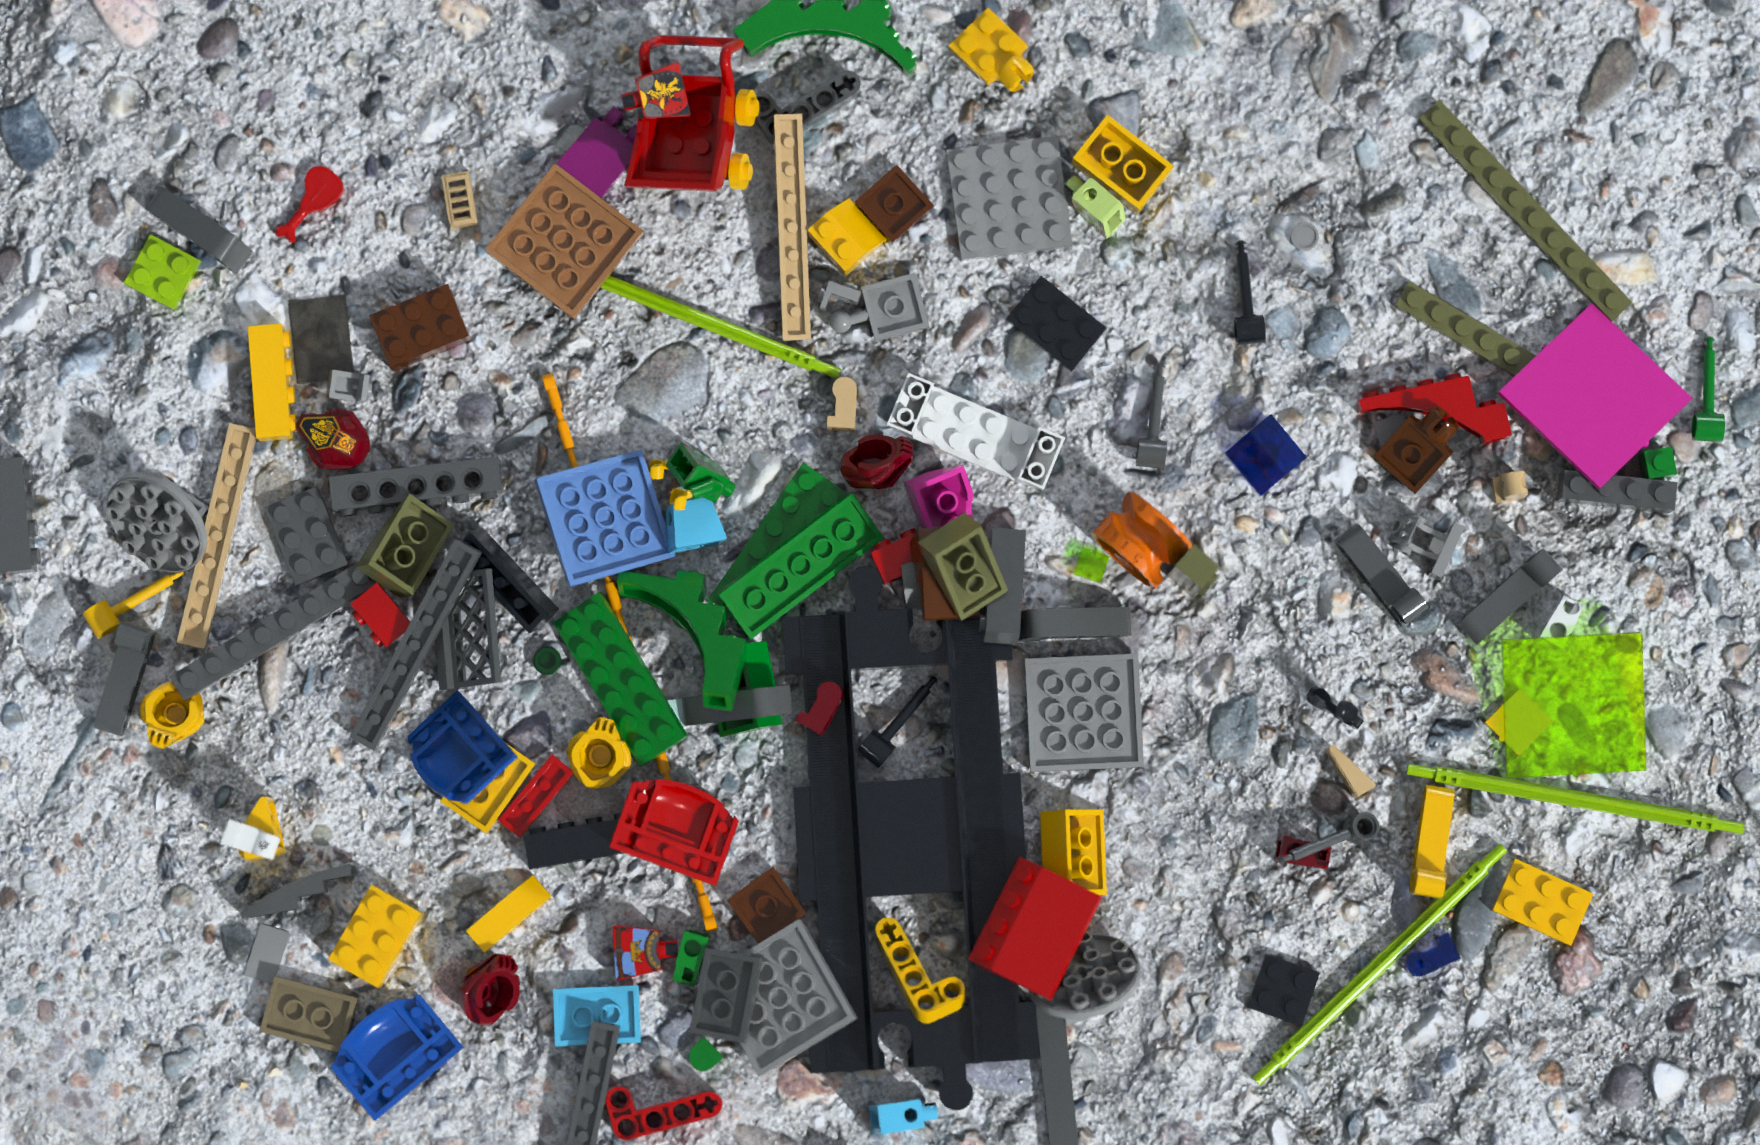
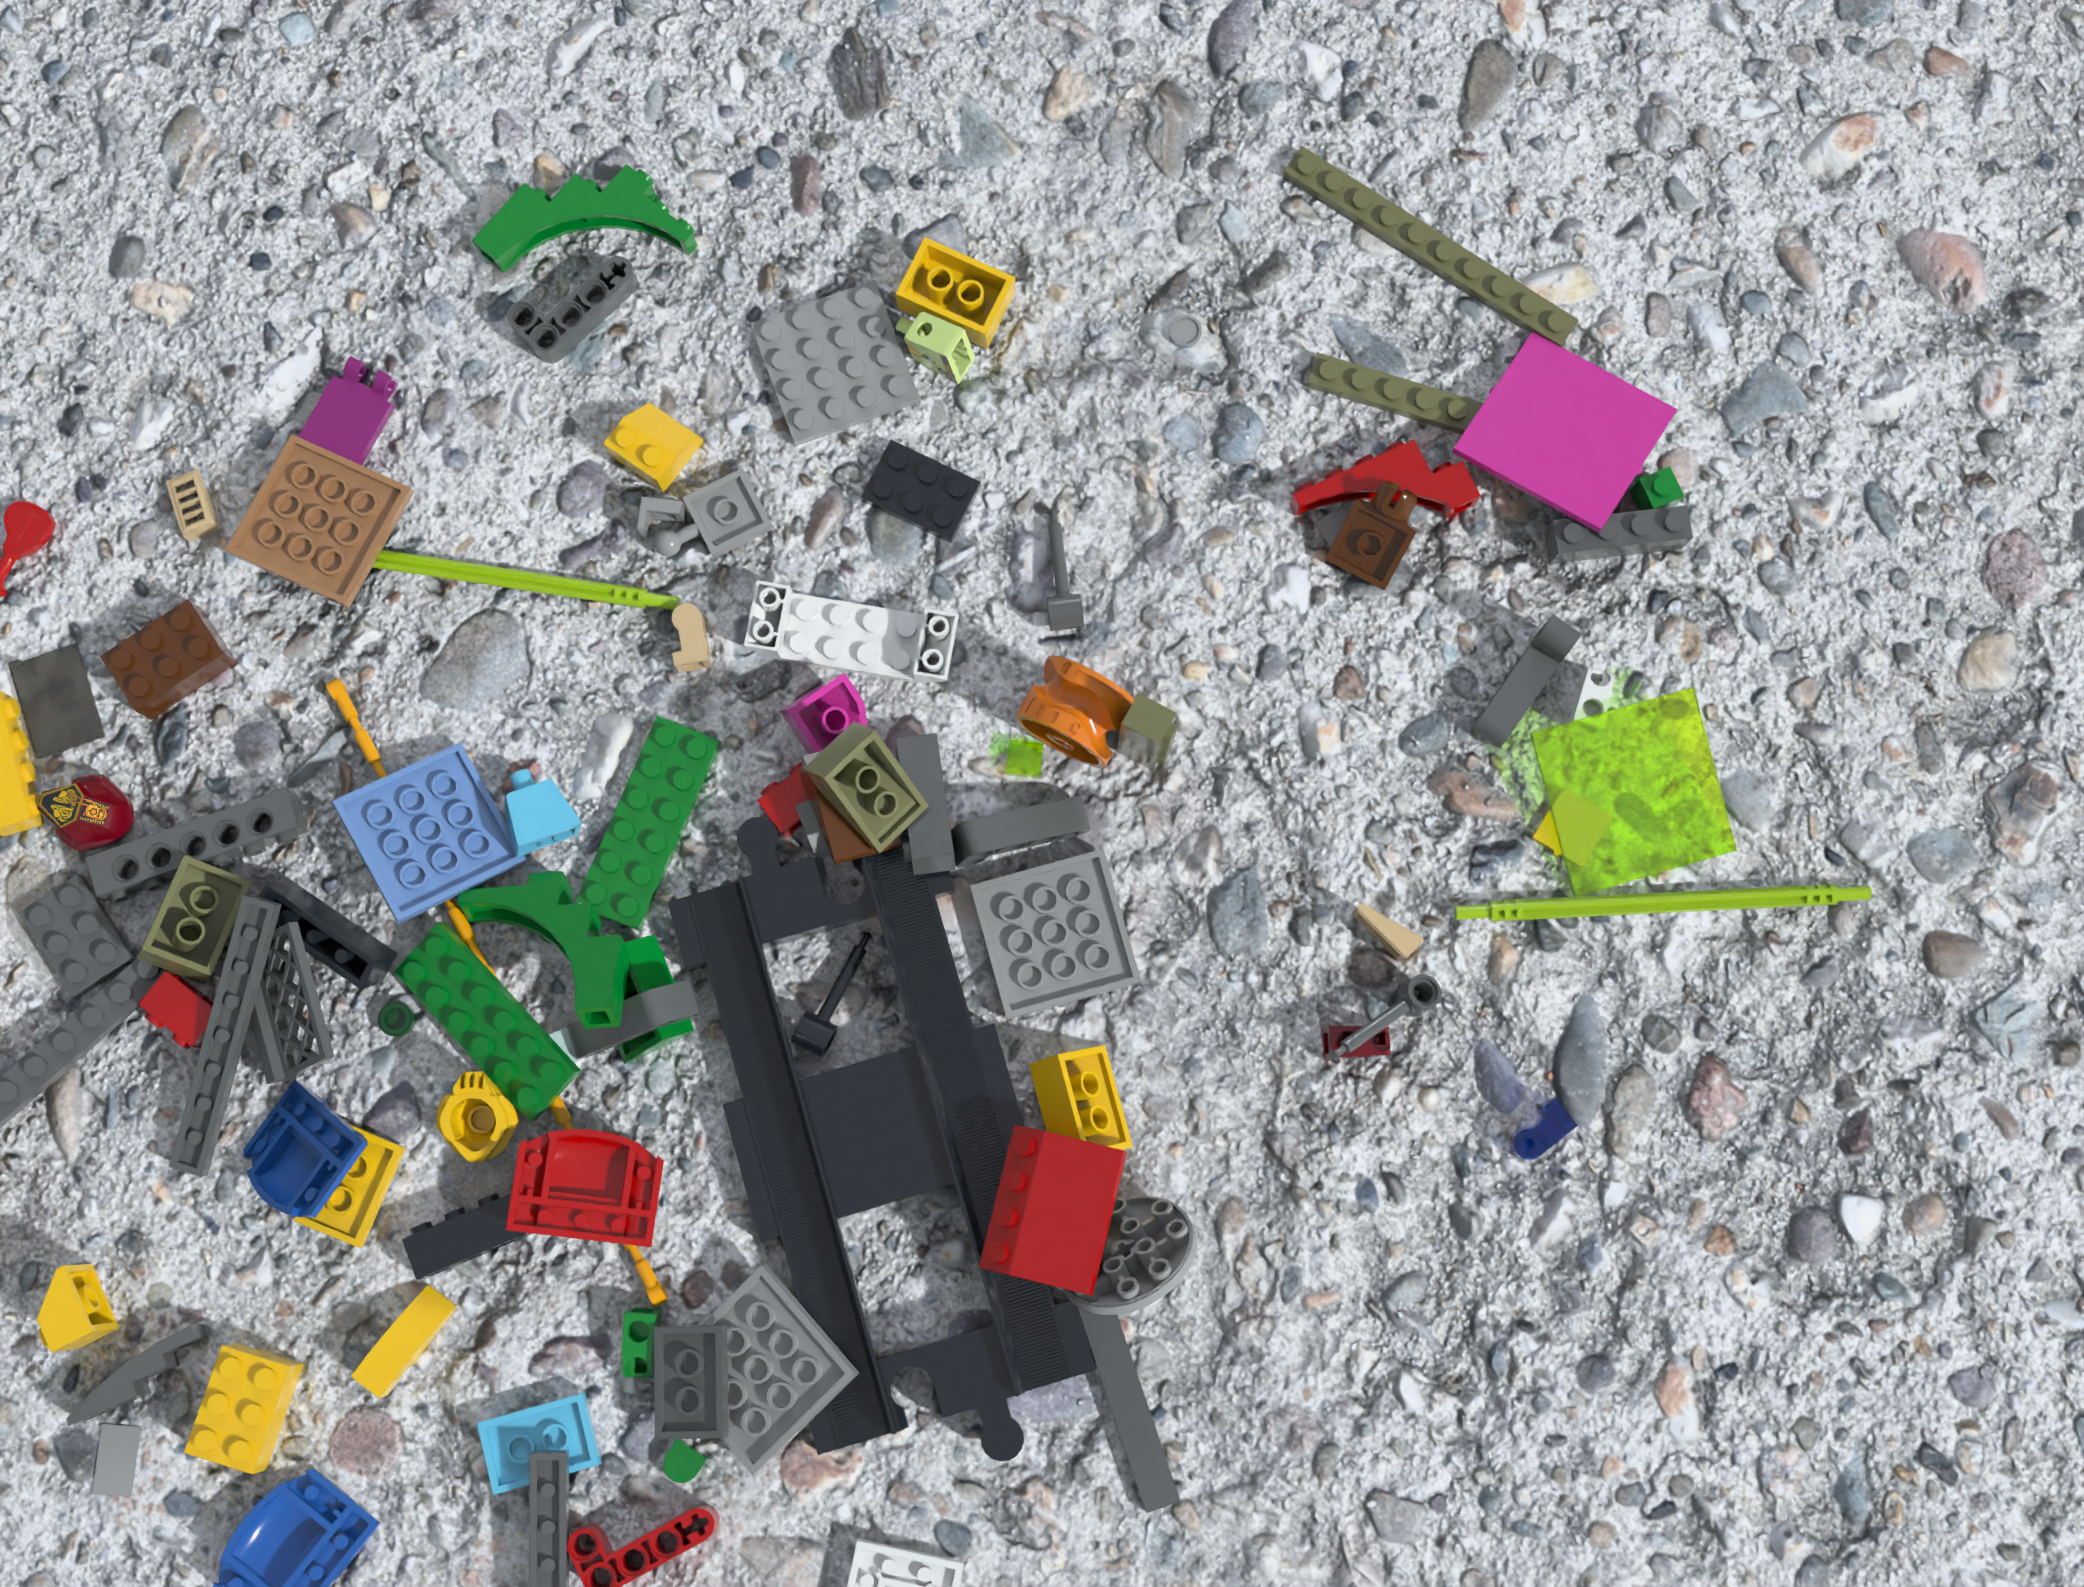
camera: 10 degrees left, 5 degrees down
(250, 839) = (46, 1325): white leg -> none
(308, 1014) = (177, 1525): dark tan plate -> none
(348, 386) = (94, 747): light grey bracket -> none
(490, 989) = (396, 1443): dark red helmet -> none
(536, 796) = (412, 1187): red plate -> none
(639, 951) = (575, 1350): torso -> none
(659, 93) = (385, 314): torso -> none
(694, 473) = (528, 757): green torso -> none
(697, 148) = (435, 346): red piece -> none
(766, 905) = (720, 1256): reddish brown plate -> none
(792, 227) = (585, 446): tan plate -> none
(800, 565) = (675, 836): green plate -> none
(824, 709) = (738, 998): dark red leg -> none
(869, 465) = (742, 693): dark red helmet -> none
(890, 1117) = (925, 1485): medium azure torso -> none
(894, 204) = (702, 397): reddish brown plate -> none
(912, 969) = (914, 1295): yellow beam -> none
(993, 52) = (781, 204): yellow plate -> none
(1249, 327) = (1146, 443): black piece -> none
(1265, 455) = (1200, 584): clear blue slope -> none
(1283, 990) = (1372, 1214): black plate -> none
(1344, 711) = (1367, 859): black piece -> none
(1379, 964) = (1479, 1157): lime axle -> none
(1380, 575) = (1369, 694): dark grey beam -> none
(1431, 842) = (1507, 994): yellow beam -> none
(1439, 549) = (1429, 644): light grey tile -> none
(1509, 487) = (1493, 556): tan leg -> none
(1542, 902) = (1655, 1035): yellow plate -> none
(1708, 424) = (1701, 436): green piece -> none

